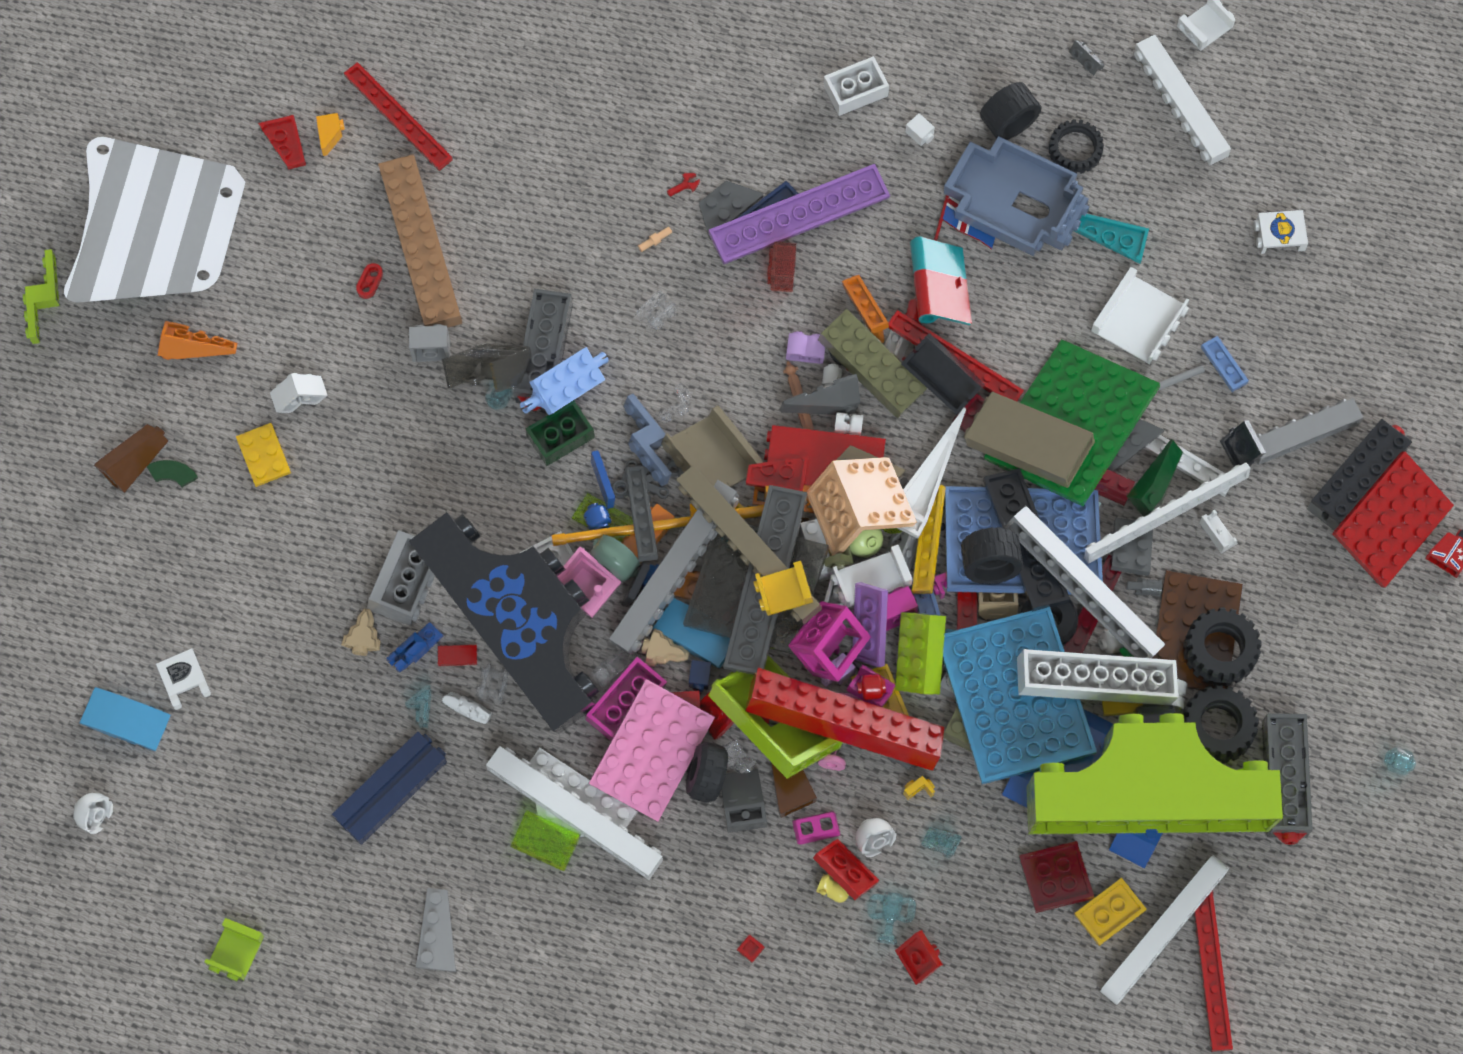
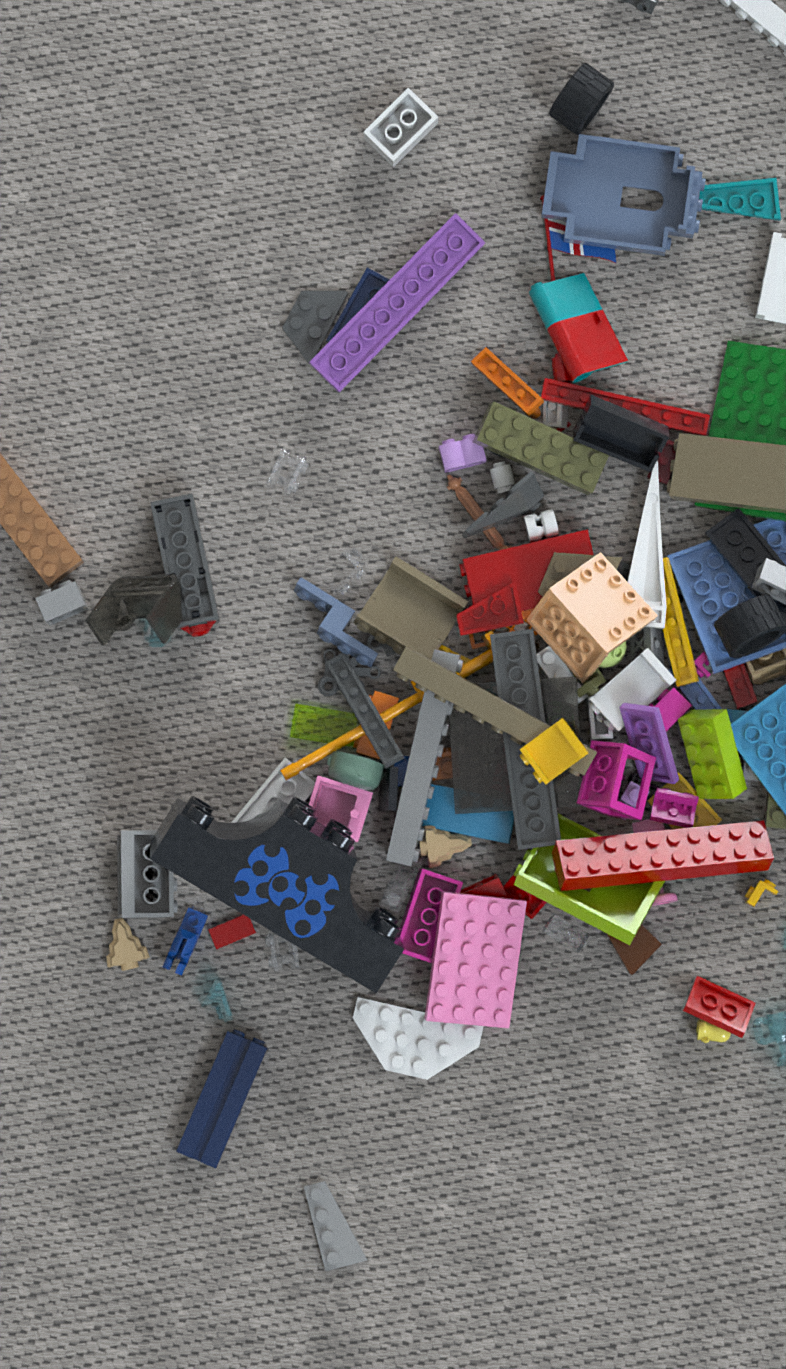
camera: 20 degrees left, 15 degrees up
(235, 950) = (136, 1326): lime panel -> none
(467, 707) = (265, 983): white hinge -> none
(545, 840) = (403, 1092): clear neon green plate -> none
(560, 433) = (241, 650): dark green brick -> none
(565, 381) = (227, 594): light blue plate -> none
(574, 812) = (422, 1055): white brick -> none
(597, 517) = (318, 729): blue head -> none
(602, 479) = (306, 684): blue tile -> none
(655, 239) = (251, 388): light nougat bar -> none
(685, 184) = (257, 312): red bar -> none
(699, 675) = (491, 858): dark blue brick -> none
(707, 772) = (542, 963): black tyre -> none
(743, 801) = (587, 975): dark grey slope -> none
(750, 948) = (653, 1122): red tile -> none
(782, 266) = (404, 372): clear red brick -> none
(818, 834) = (666, 964): dark pink piece -> none
(871, 686) = (676, 809): red head -> none
(876, 833) = (732, 960): white cylinder -> none
(920, 130) = (489, 152): white brick -> none
(1086, 129) = (670, 85): black tyre -> none

